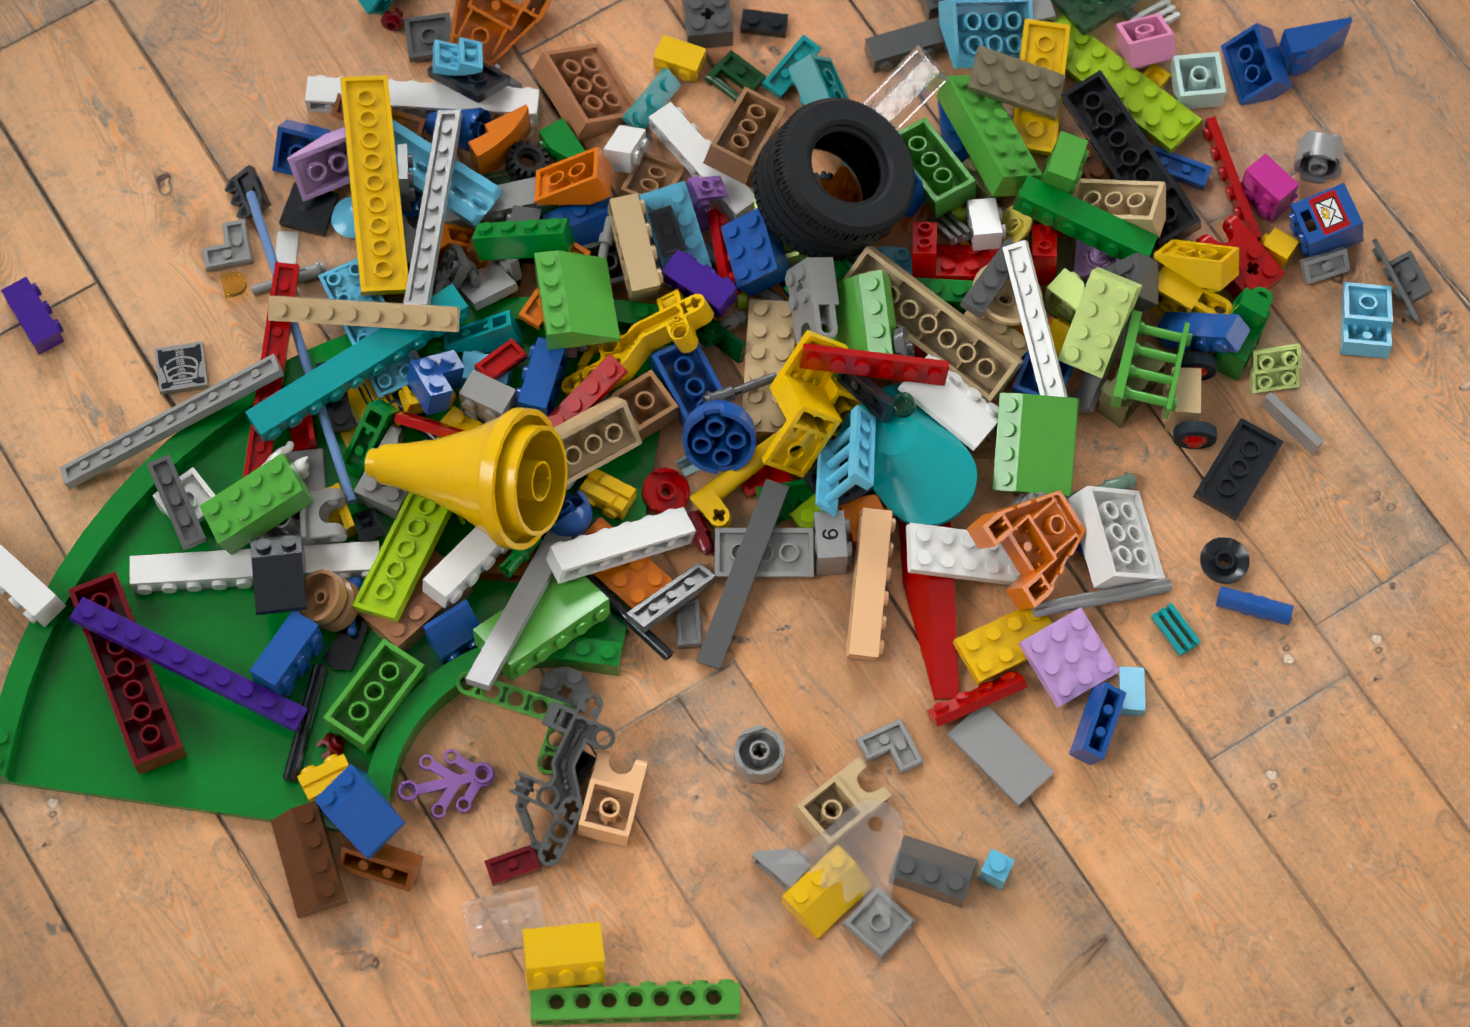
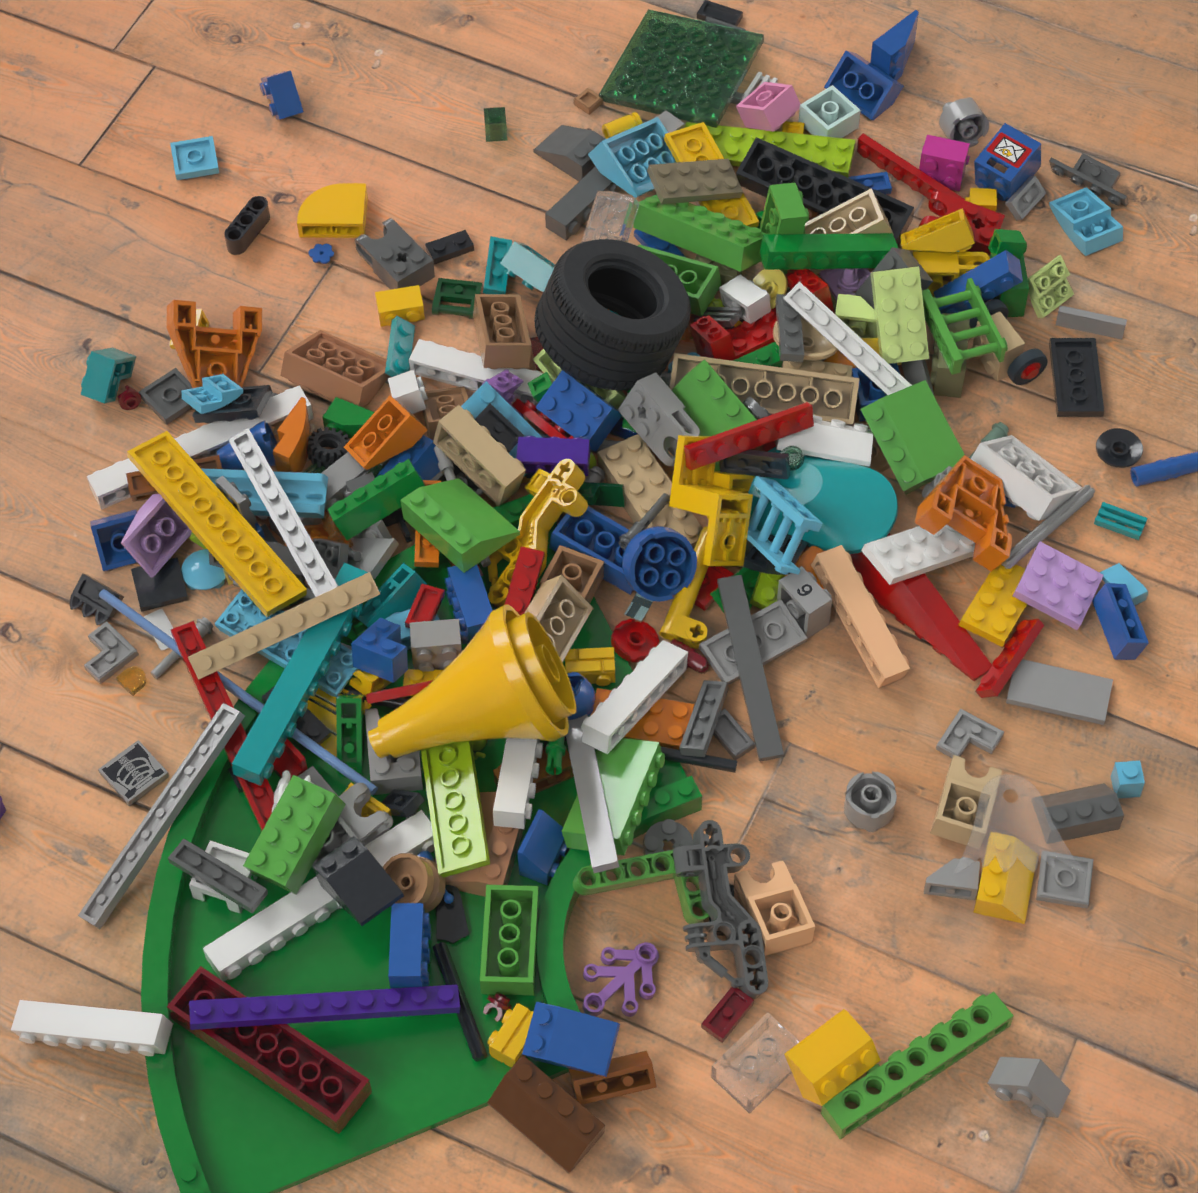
camera: 30 degrees left, 10 degrees down
(739, 207) = (540, 386): none -> green tile

